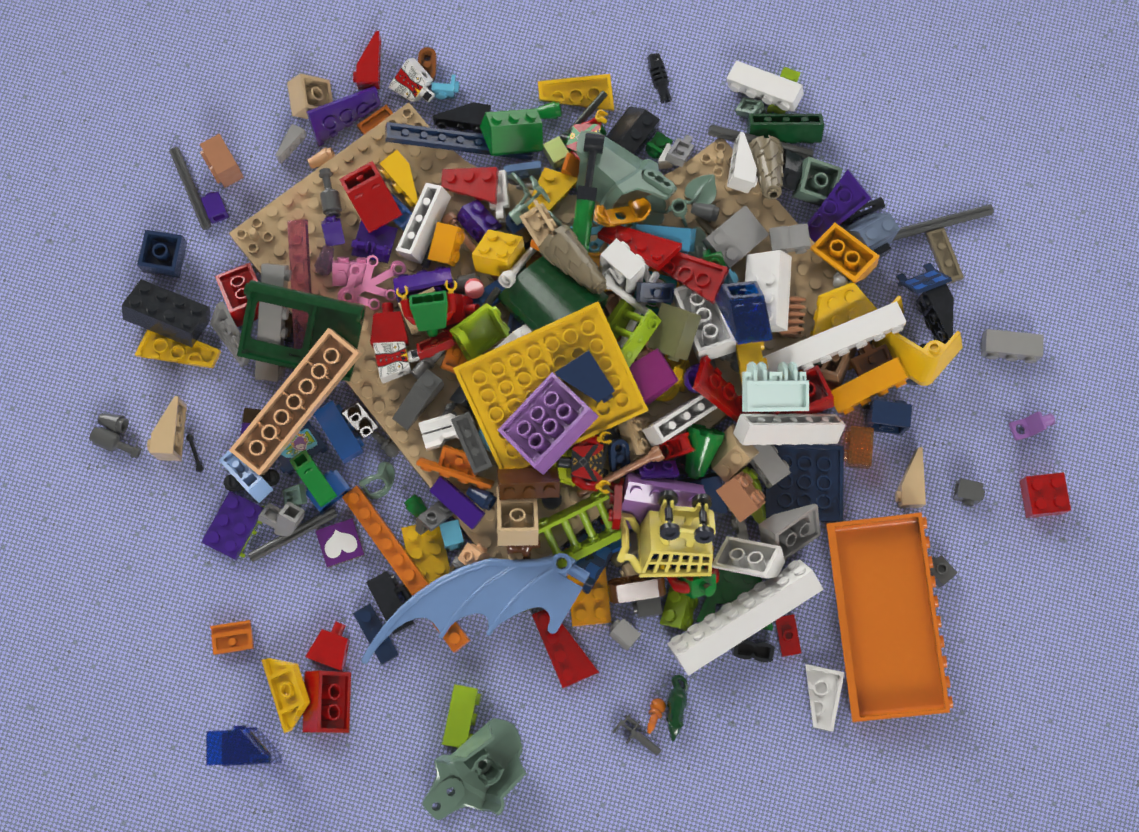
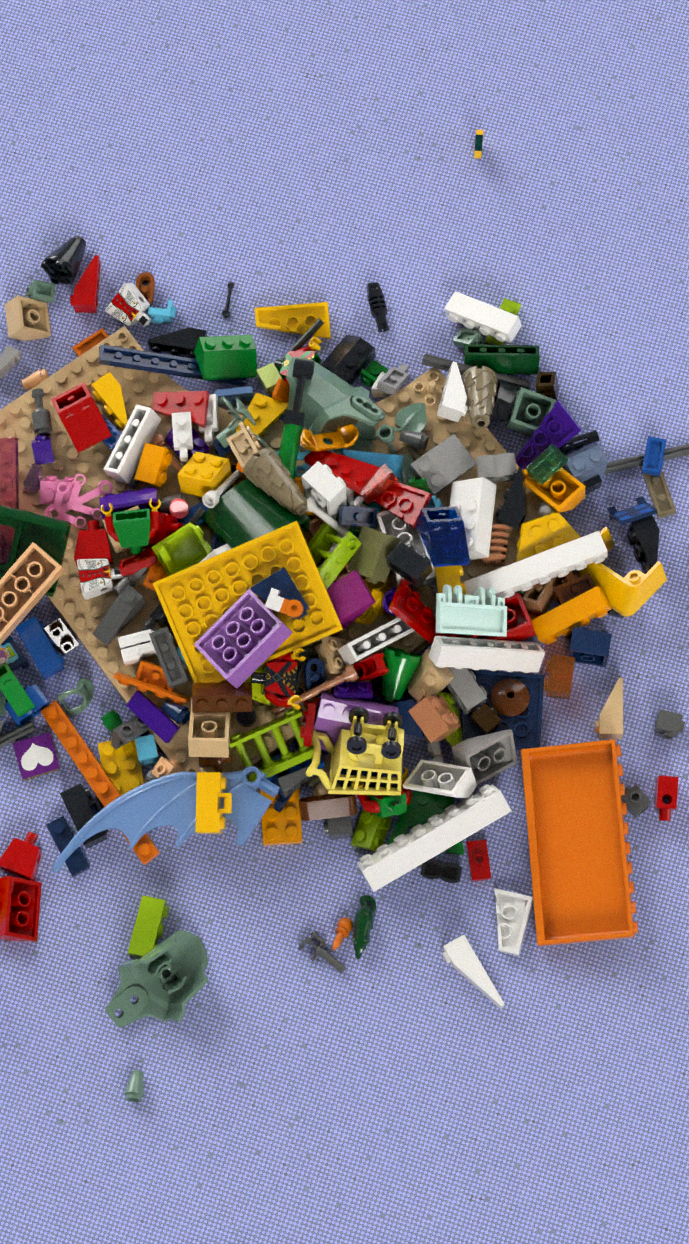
camera: 10 degrees right, 5 degrees down
(323, 68) = (41, 291): none -> sand green bracket
(341, 113) = (57, 336): dark purple wing -> none
(345, 38) = (65, 261): none -> black cone
(375, 243) = (86, 462): dark purple hinge -> none
(389, 447) = (90, 664): dark grey bar -> none
(474, 211) = (182, 434): none -> white plate
(508, 87) = (225, 313): none -> black hinge
(519, 600) = (208, 800): none -> yellow piece
(550, 111) = (266, 337): green cone -> none
(564, 652) = (254, 870): red wing -> none
(595, 392) = (288, 607): none -> leg
(601, 563) = (293, 781): none -> dark grey slope
(624, 633) = (313, 851): light grey brick -> none
(677, 257) = (378, 484): none -> clear red slope
(712, 341) = (409, 564): none -> black brick
(781, 740) = (466, 962): none -> white slope
(789, 493) = (485, 719): none -> dark brown brick
(804, 476) = (508, 706): none -> reddish brown dish
(810, 278) = (515, 504): none -> black slope
(832, 152) = (547, 384): none -> dark brown brick
(840, 235) = (546, 464): none -> clear green slope
(940, 222) = (654, 456): none -> blue tile
(970, 558) = (665, 787): none -> red torso

